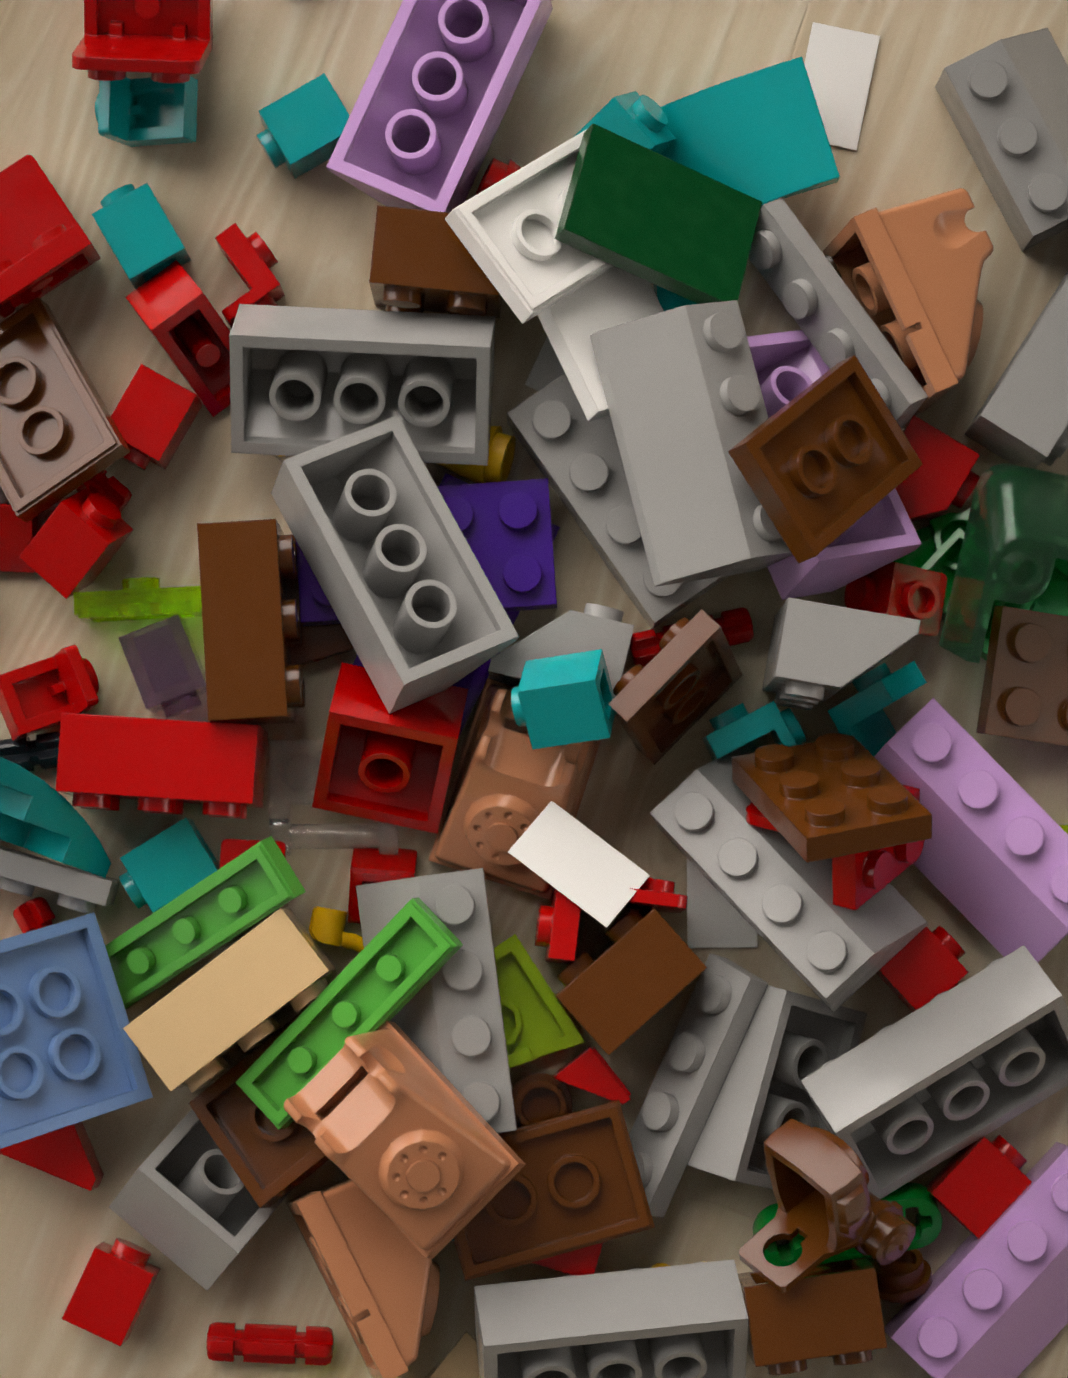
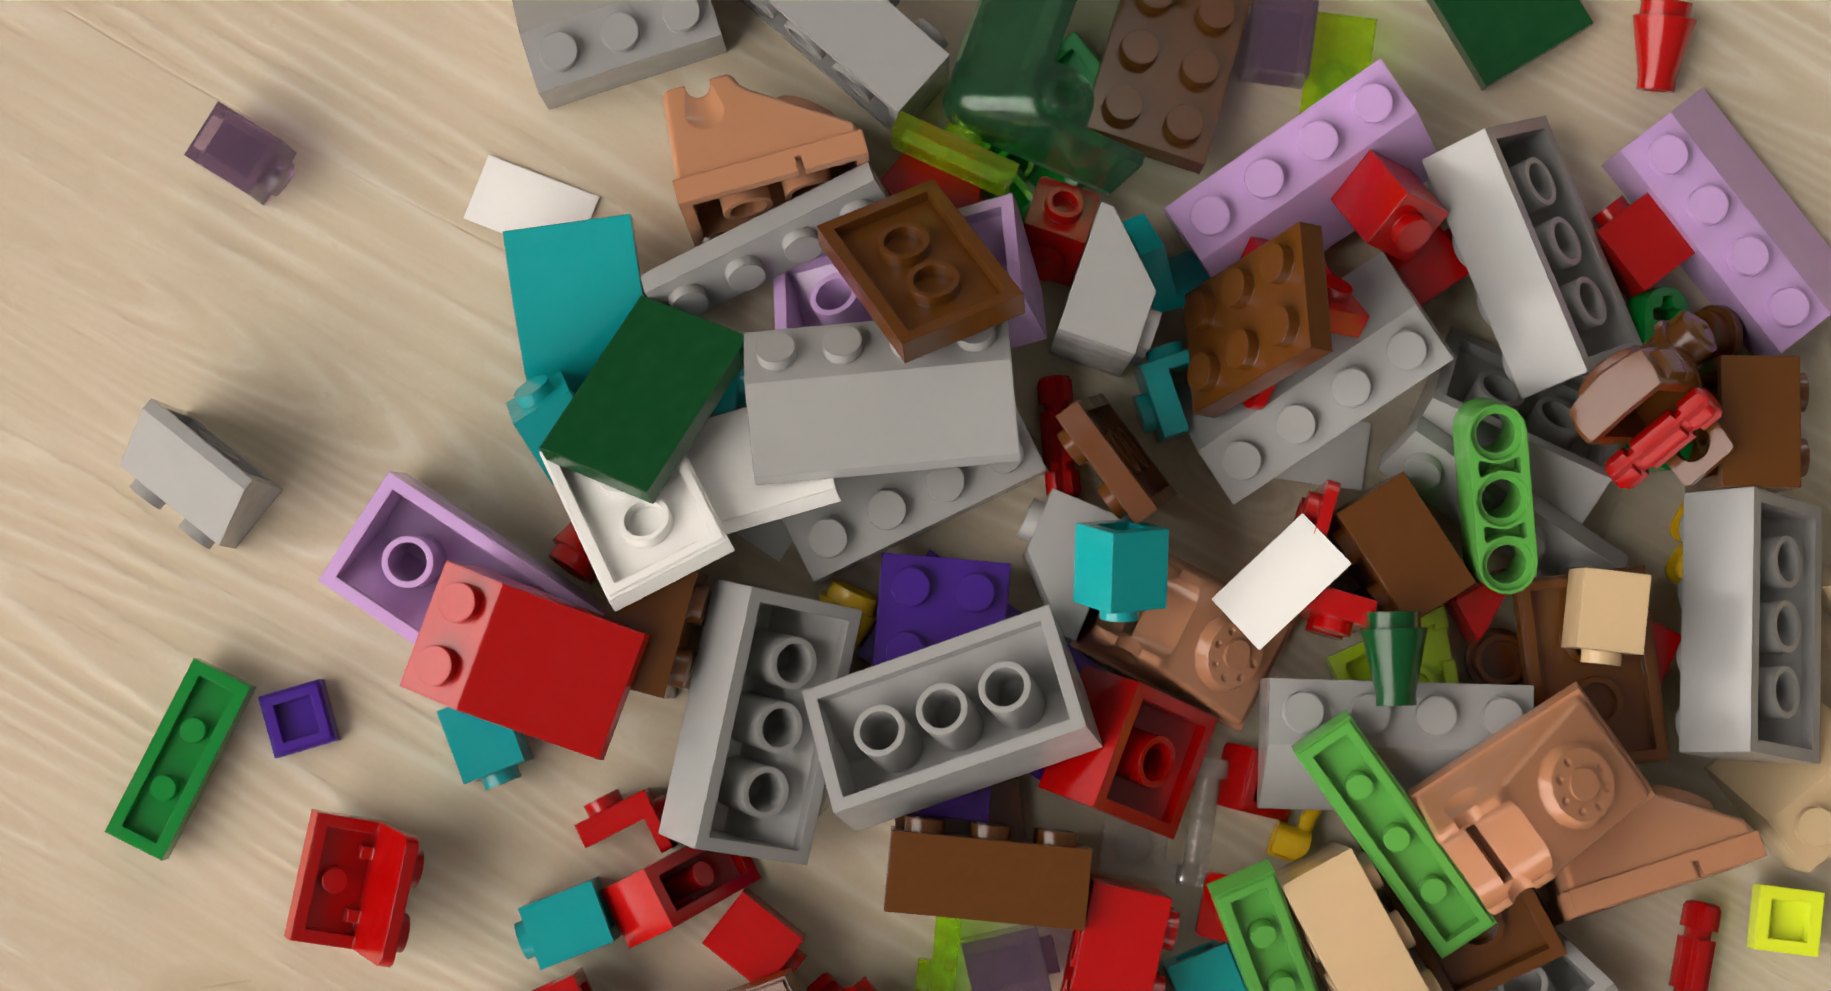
camera: 80 degrees left, 0 degrees up
(147, 111) = (444, 898): teal bracket -> none
(385, 141) = (524, 659): none -> red slope
(523, 982) = (1394, 655): none -> dark green cone
(597, 1189) = (1606, 614): none -> tan brick
(669, 1076) = (1513, 520): none -> bright green beam
(781, 1221) = (1663, 438): none -> red axle
(953, 482) = (955, 152): none -> clear neon green plate
(971, 919) = (1389, 206): none -> red brick

